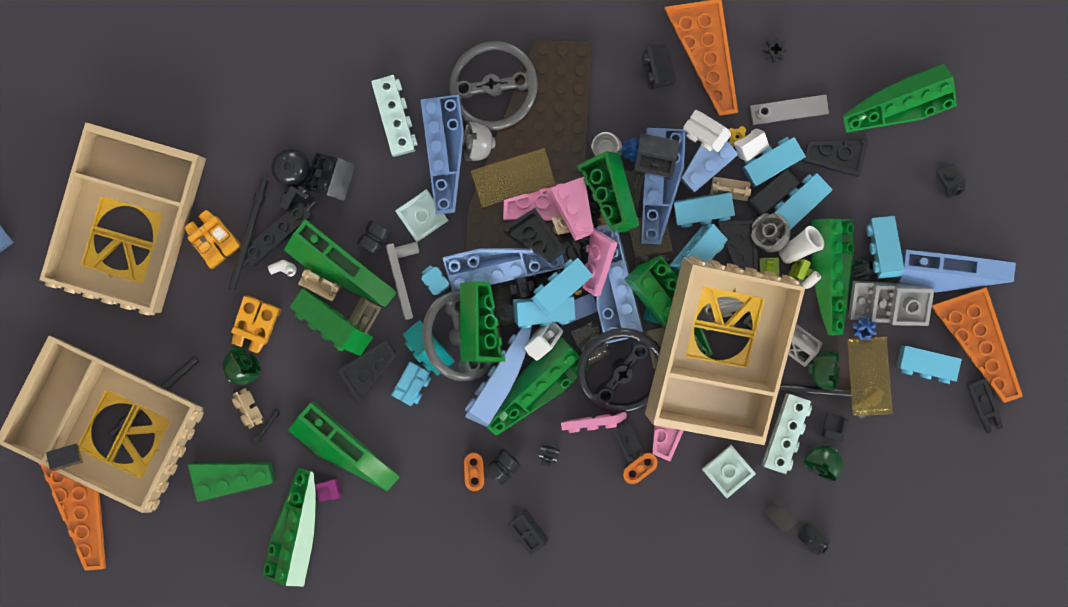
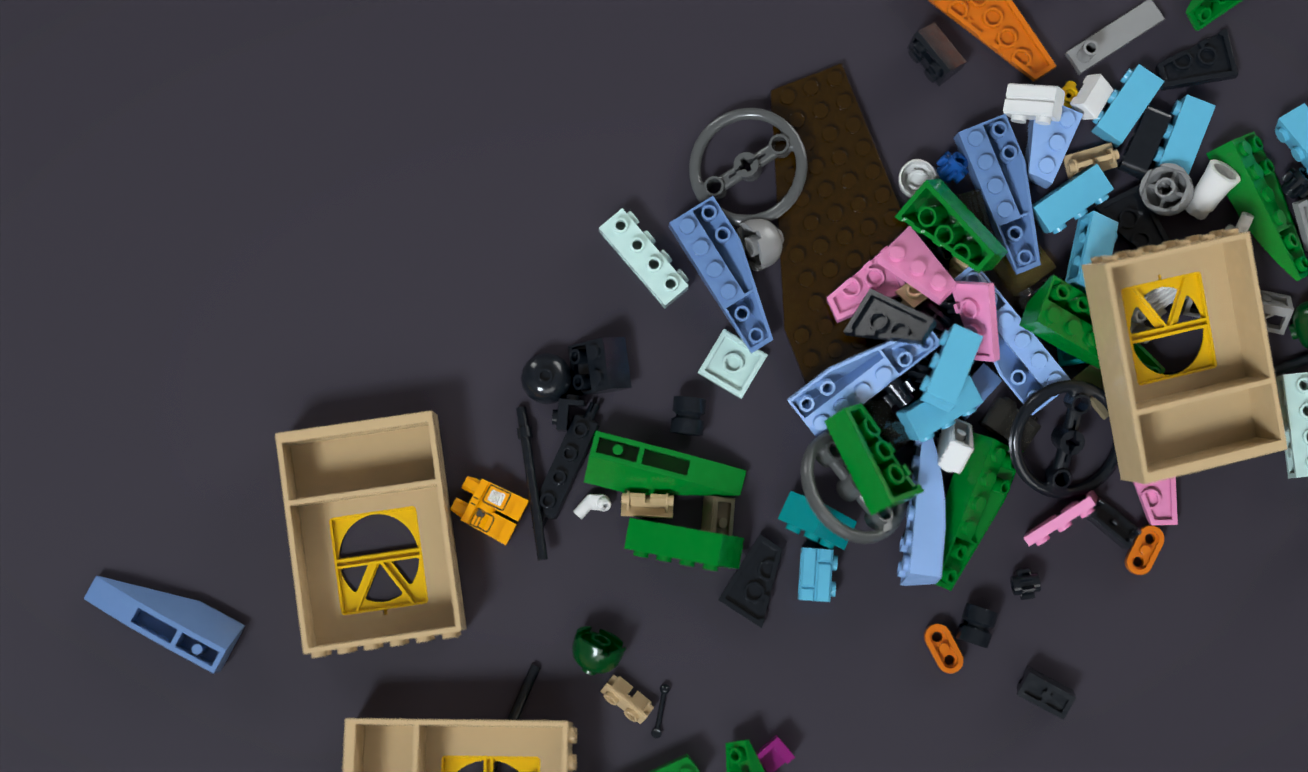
camera: 25 degrees left, 5 degrees down
(251, 328) = (591, 596): light orange hips -> none
(337, 445) = (764, 694): green wedge -> none
(393, 255) = (721, 427): light grey piece -> none
(435, 280) = (788, 432): medium azure brick -> none
(513, 177) = (824, 266): clear yellow tile -> none
(656, 156) = (989, 160): black slope -> none
(728, 471) = (1253, 504): light aqua tile -> none
(769, 264) = (1180, 230): lime tile -> none
(800, 269) = (1222, 218): lime tile -> none

